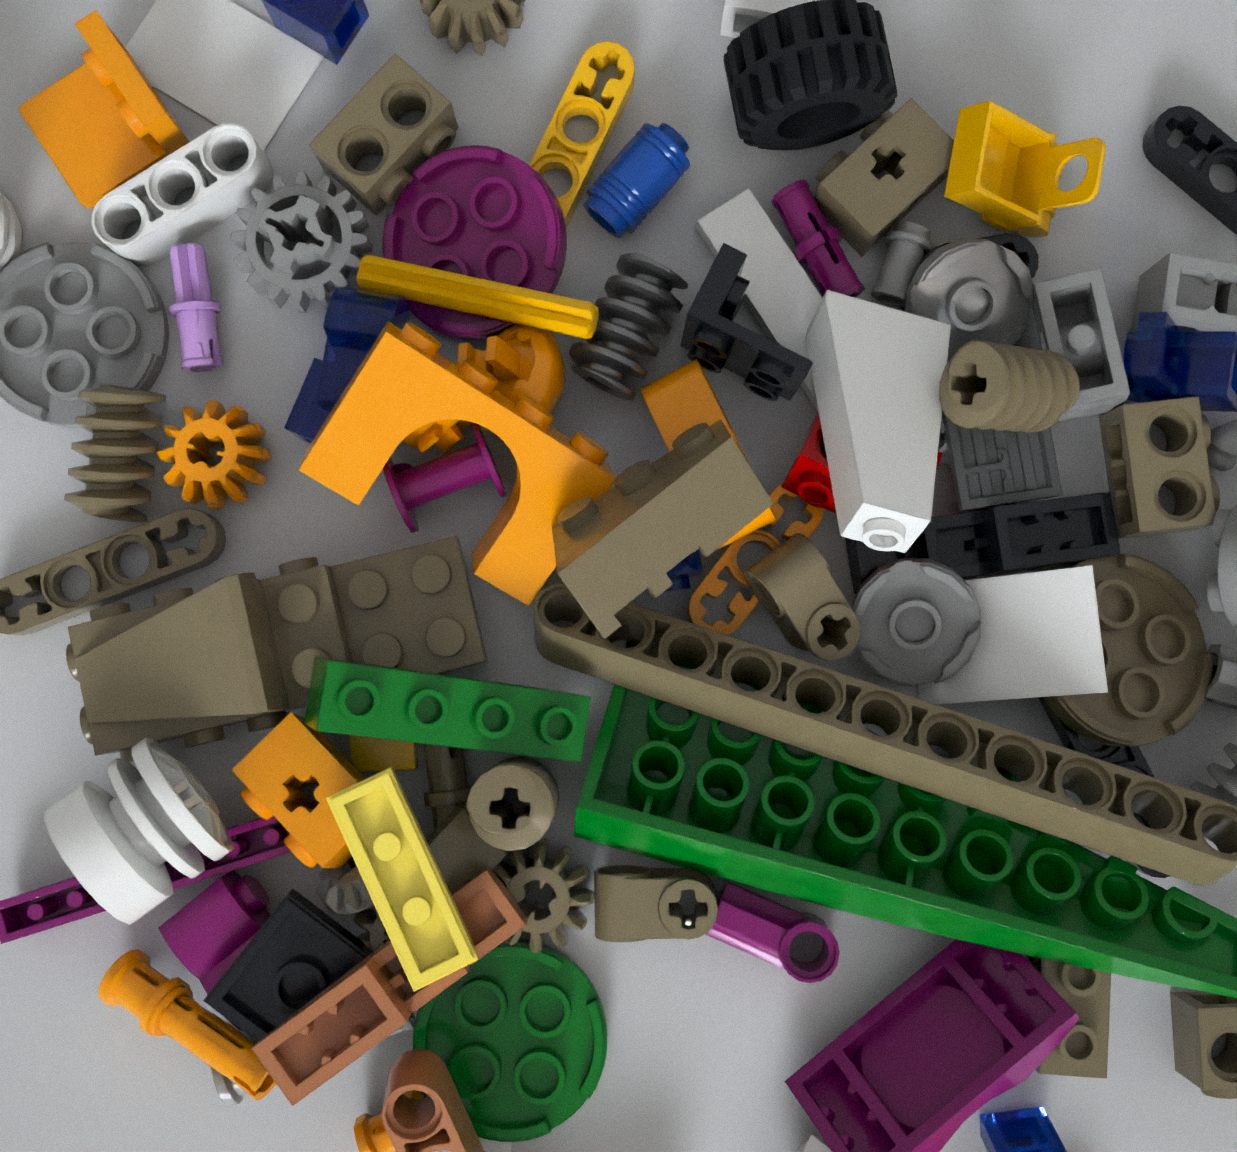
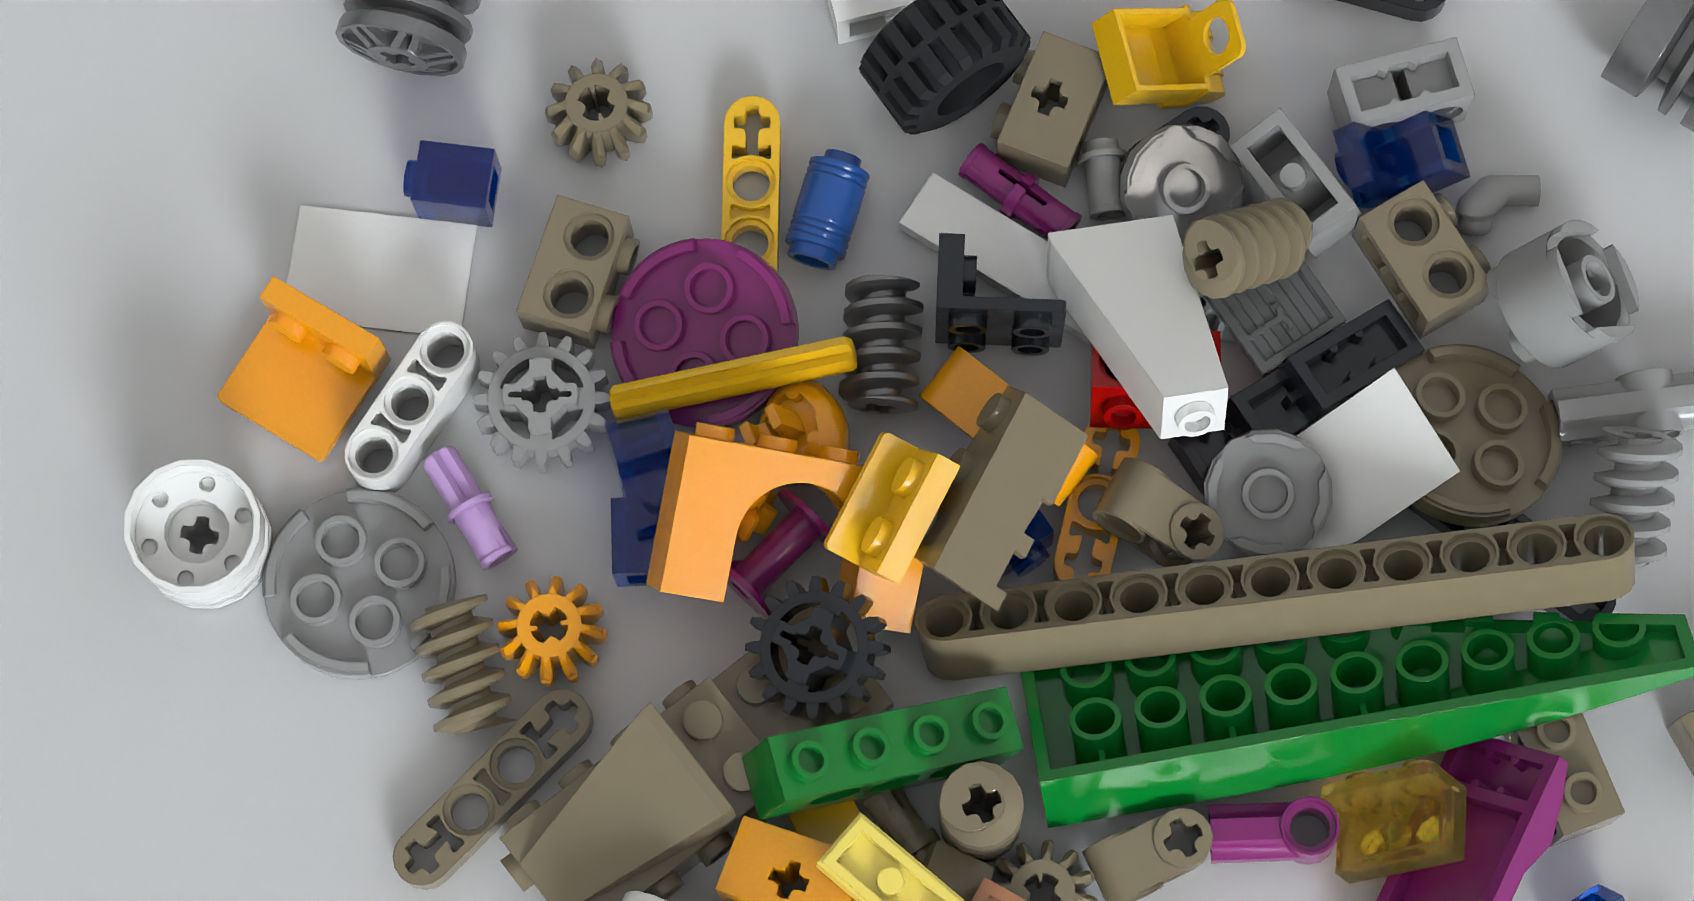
camera: 20 degrees left, 10 degrees down
(458, 588) = (805, 670): none -> black gear
(553, 488) = (890, 507): none -> yellow bracket
(893, 986) = (1397, 820): none -> clear yellow bracket

